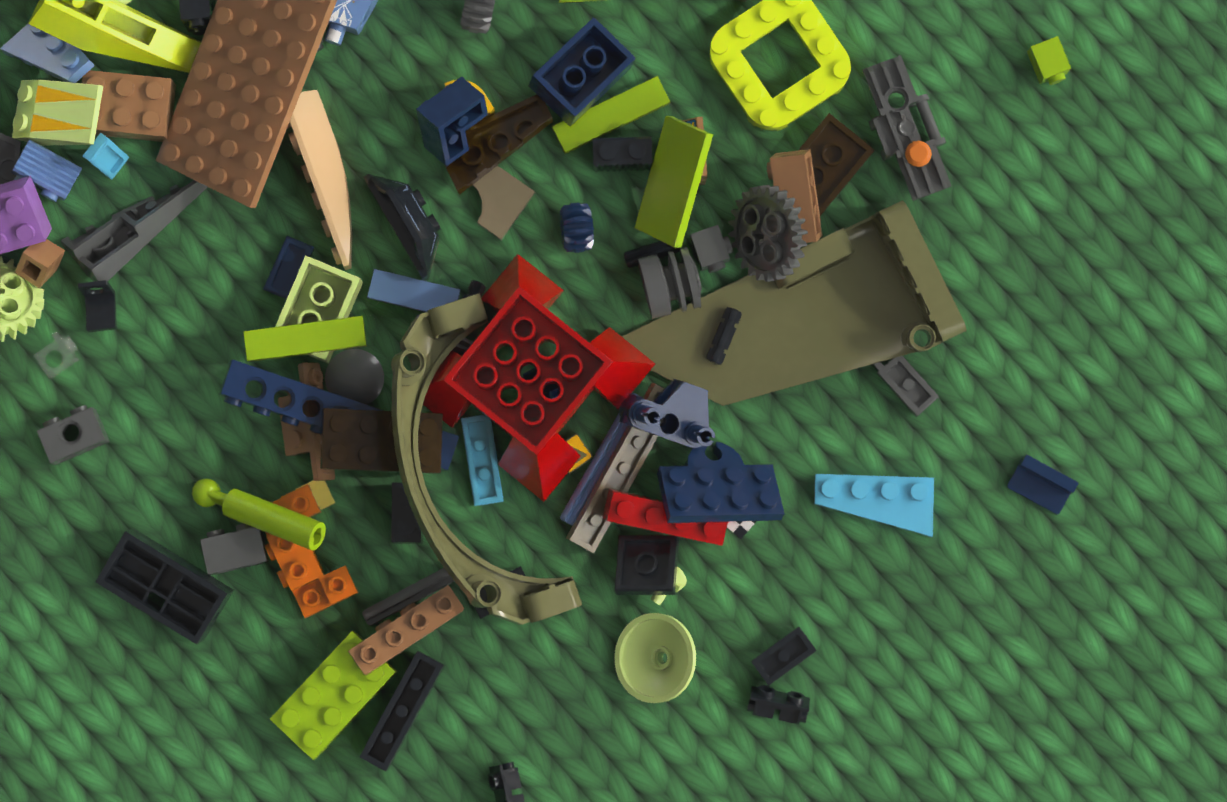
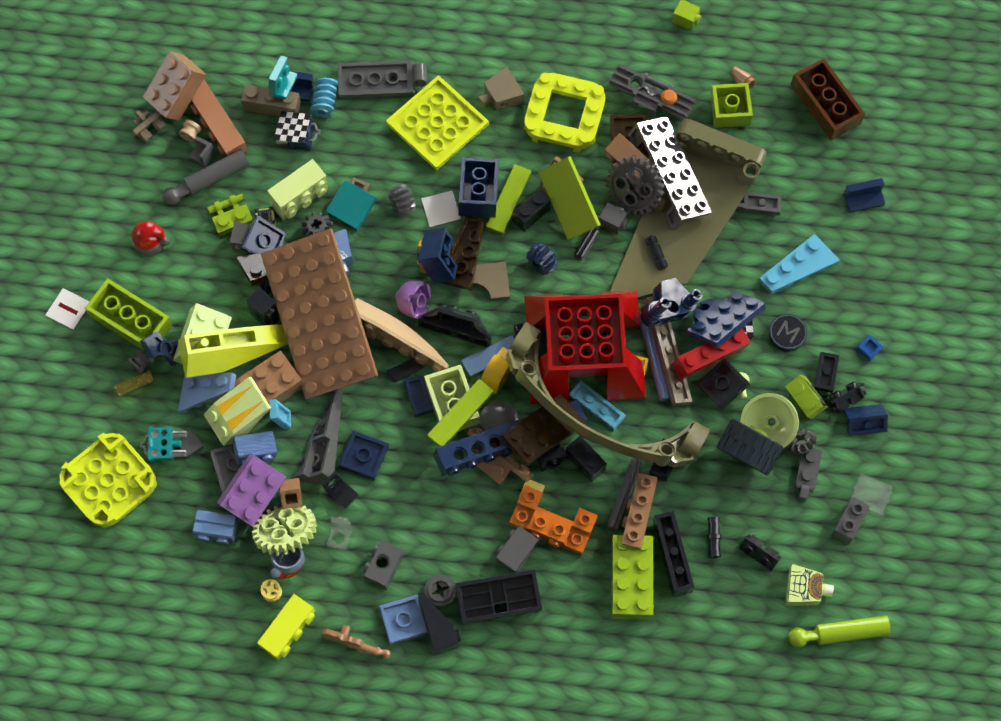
camera: 40 degrees left, 15 degrees down
(43, 516) = (404, 619): none -> medium blue tile
(70, 563) = (440, 629): none -> black slope
(104, 507) = (444, 582): none -> dark grey gear
(164, 285) = (363, 455): none -> dark blue tile
(261, 514) = (515, 517): lime piece -> none
(300, 221) = (404, 370): none -> black sticker
(372, 479) = (552, 457): none -> black brick
(381, 145) = (412, 298): none -> medium lavender cylinder
(394, 320) = (496, 370): none -> yellow brick
(469, 731) = (714, 537): none -> black pin
(521, 54) = (440, 208): none -> white sticker
(597, 669) = (750, 446): none -> black wheel
(650, 751) = (807, 473): none -> dark grey hinge
(666, 720) = (803, 446): none -> dark grey gear
(670, 282) = (610, 246): dark grey wheel -> none
(728, 665) = (806, 396): none -> lime brick
(775, 751) = (866, 419): none -> dark blue panel
(786, 568) = (788, 332): none -> black tile
(832, 251) = (679, 179): none -> bracket
(865, 671) = (869, 348): none -> blue tile
(987, 229) = (731, 105): none -> lime brick
(1038, 206) = (741, 76): none -> medium nougat cone
(1113, 323) = (827, 99): none -> reddish brown brick

